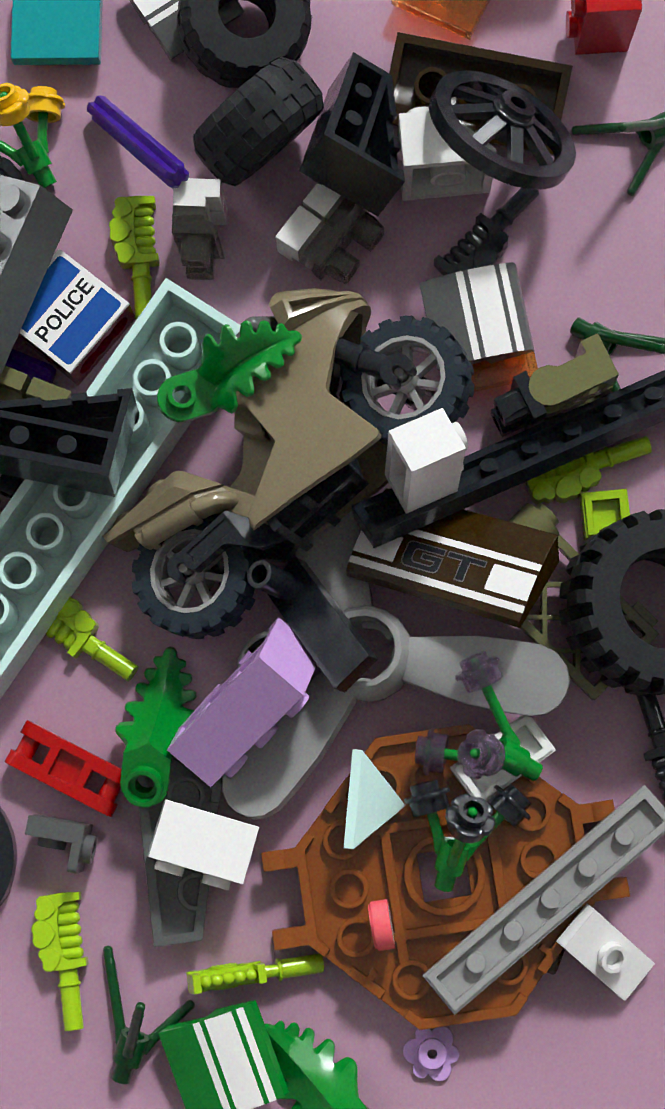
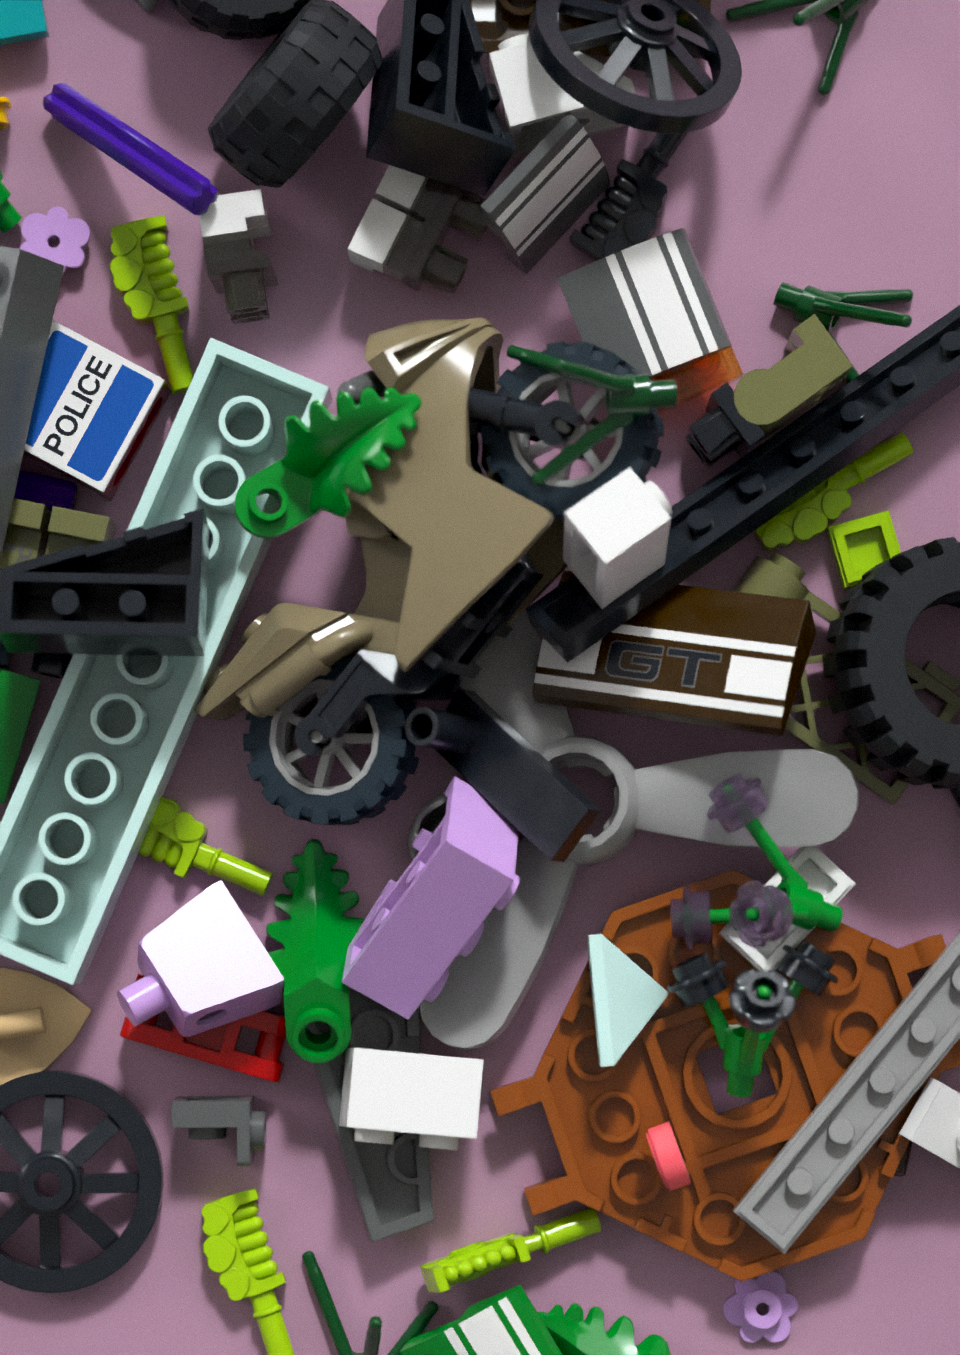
camera: 20 degrees left, 5 degrees up
(70, 722) = (203, 968): none -> torso
(78, 191) = (42, 229): none -> lavender plant
(422, 222) = (546, 193): none -> dark grey slope
(448, 357) = (624, 398): none -> dark green plant

